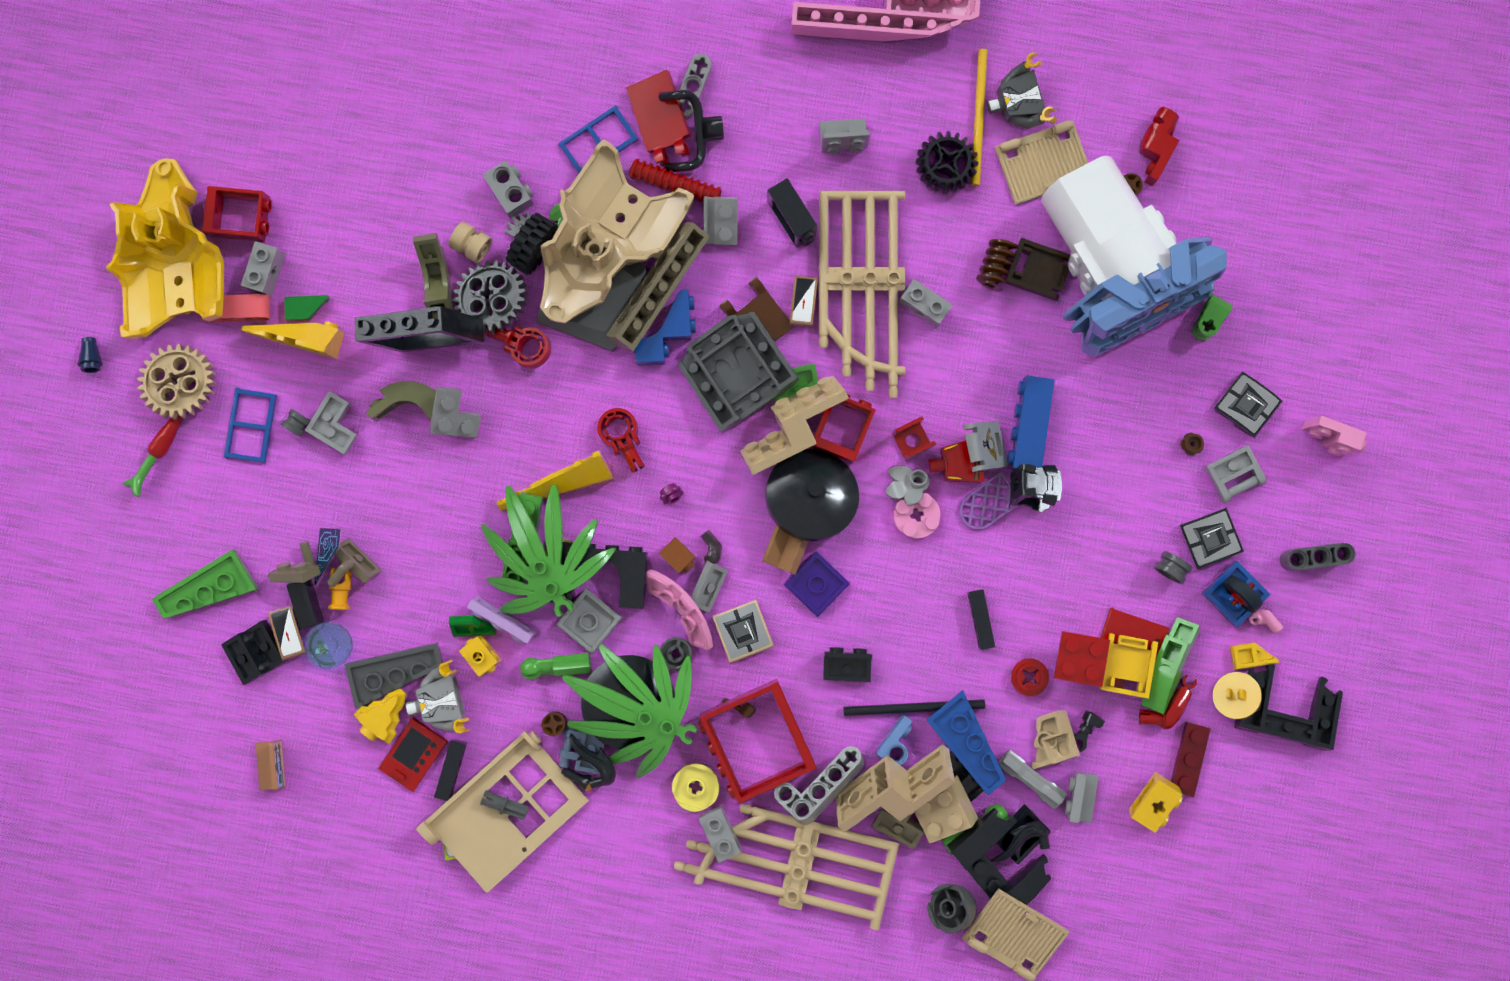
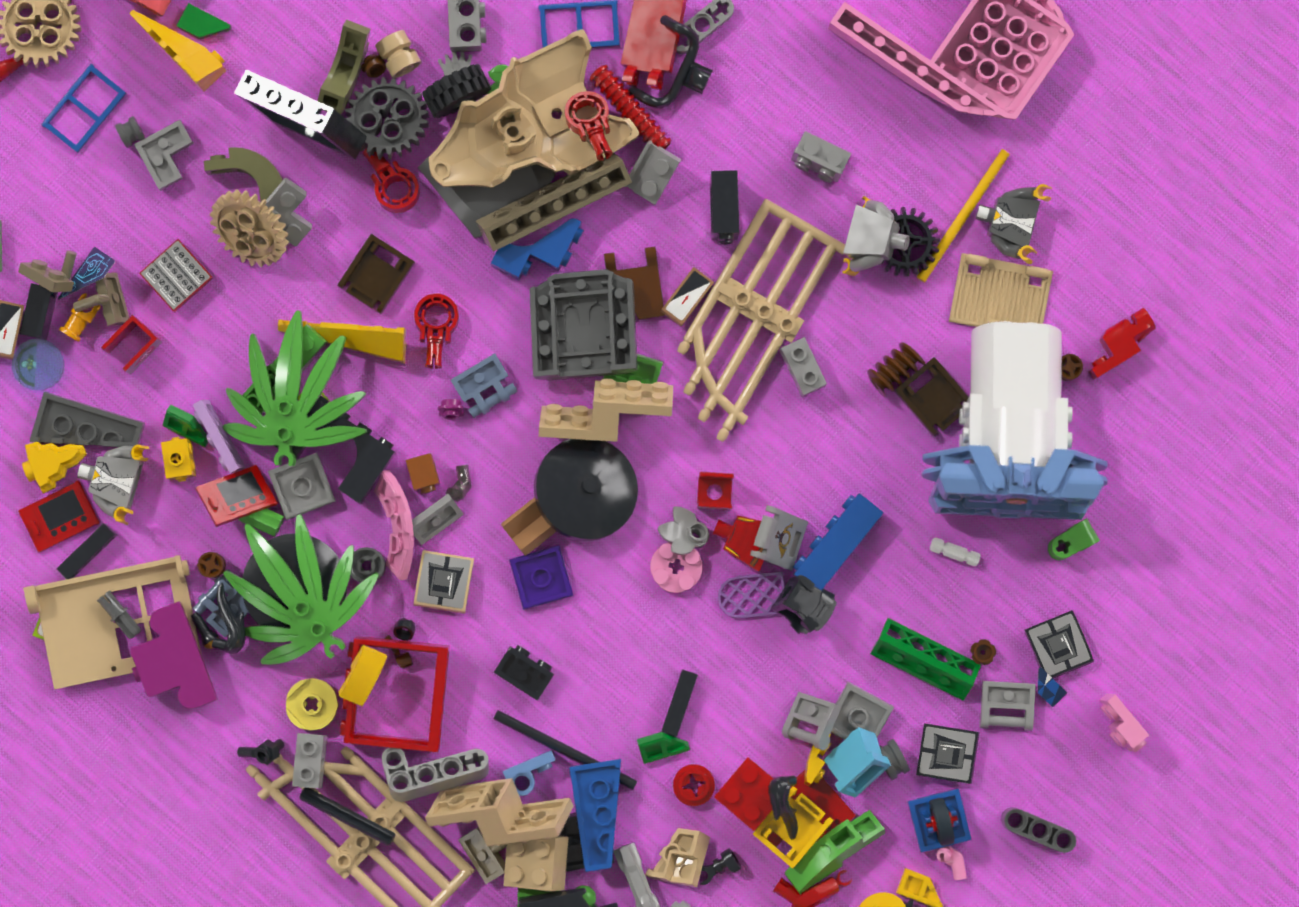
camera: 15 degrees right, 0 degrees up
(379, 584) = (122, 332): none -> red piece
(396, 513) = (176, 275): none -> light grey tile
(431, 443) = (249, 228): none -> tan gear
(456, 263) = (373, 66): none -> reddish brown plate
(542, 658) = (236, 495): none -> container
(551, 426) = (374, 278): none -> dark brown container
(567, 816) = (173, 660): none -> magenta brick
(655, 211) = (591, 126): none -> red pin
(679, 457) = (480, 378): none -> sand blue plate
(681, 846) = (264, 753): none -> black piece
(724, 742) = (363, 675): none -> yellow slope
(734, 691) = (403, 634): none -> black hinge
(776, 860) = (347, 816): none -> black axle
(835, 449) = (683, 430): red window -> none
(921, 171) = (872, 237): none -> light grey torso
(986, 662) = (660, 746): none -> green tile
(1090, 566) = (814, 712): none -> light grey plate
(1106, 646) = (779, 793): none -> black piece
(1116, 610) = (814, 766): none -> yellow slope
(1125, 379) = (955, 552): none -> white axle
(1126, 550) = (860, 710): none -> light grey plate
(1149, 585) = (857, 762): none -> medium azure hips
(1153, 478) = (924, 663): none -> green fence
(1260, 442) = (1049, 688): none -> dark blue sticker

